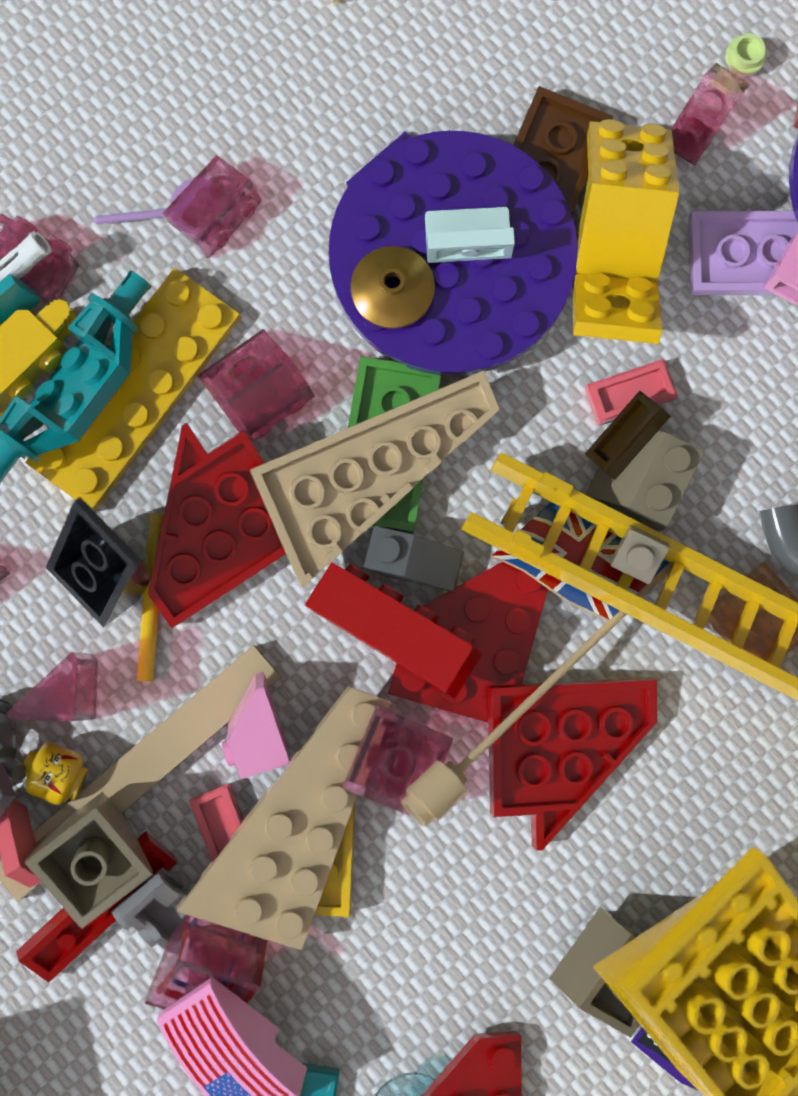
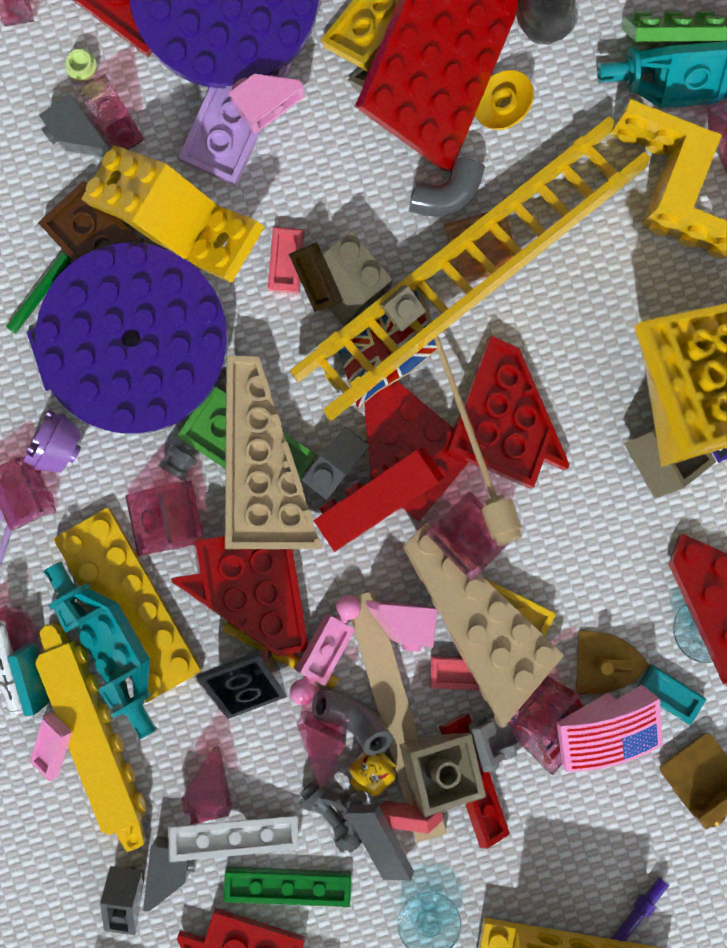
camera: 70 degrees left, 5 degrees up
(113, 723) = (355, 717): none -> dark grey cylinder
(180, 647) = (325, 650): none -> bright pink plate
(286, 217) = (53, 444): none -> medium lavender cone
(315, 1010) = (606, 663): none -> pearl gold shield
(329, 372) = (178, 462): none -> dark grey wheel
(395, 306) = (155, 392): pearl gold dish -> none
(449, 122) = (38, 293): none -> green bar
(468, 234) = (125, 322): light aqua panel -> none
(667, 76) = (72, 129): none -> dark grey slope

